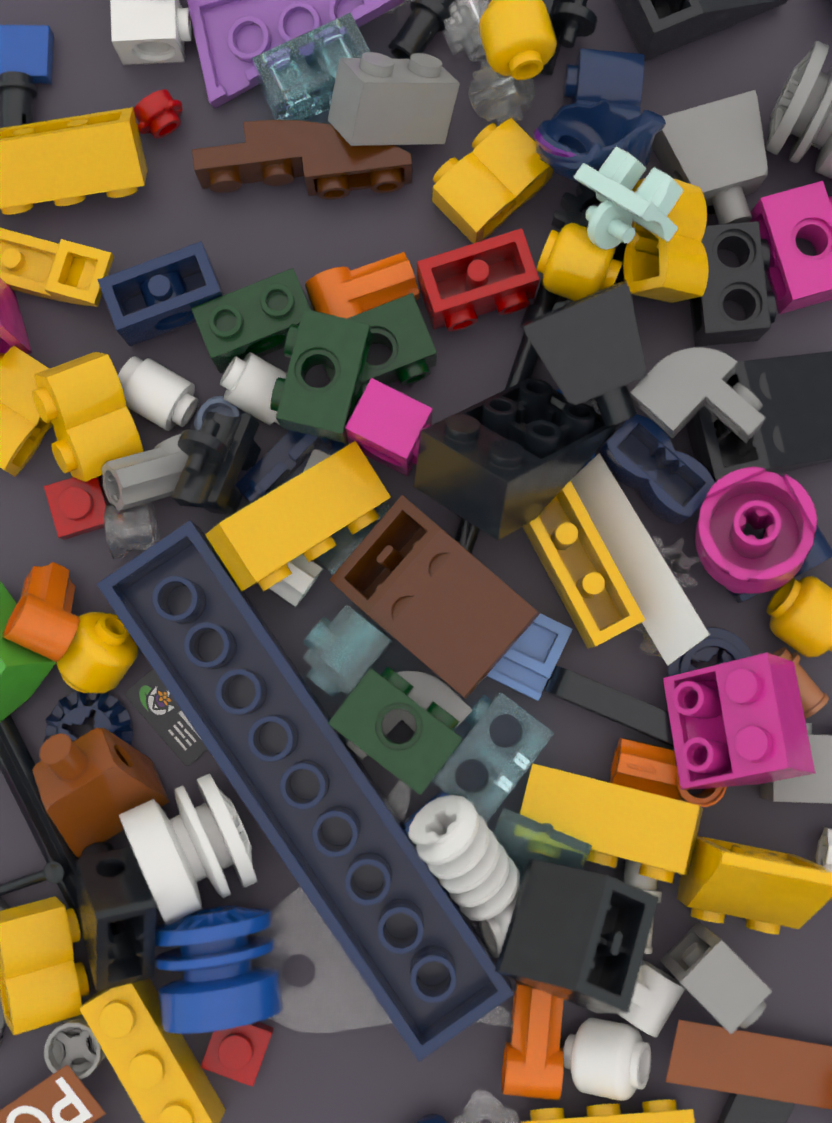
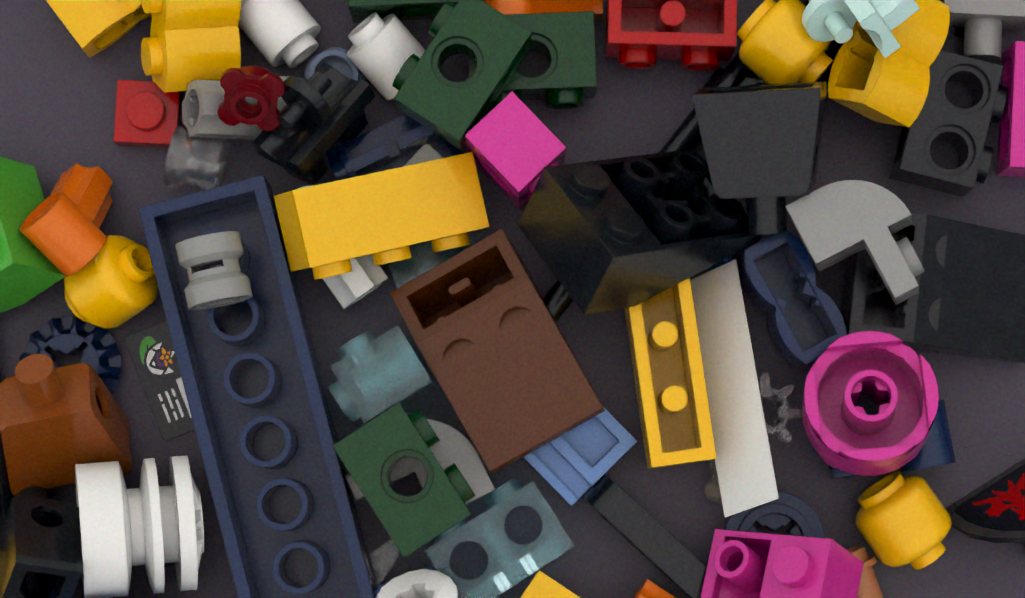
camera: 20 degrees right, 0 degrees up
(157, 446) = (253, 83): none -> dark red plate
(177, 613) = (222, 279): none -> light grey wheel

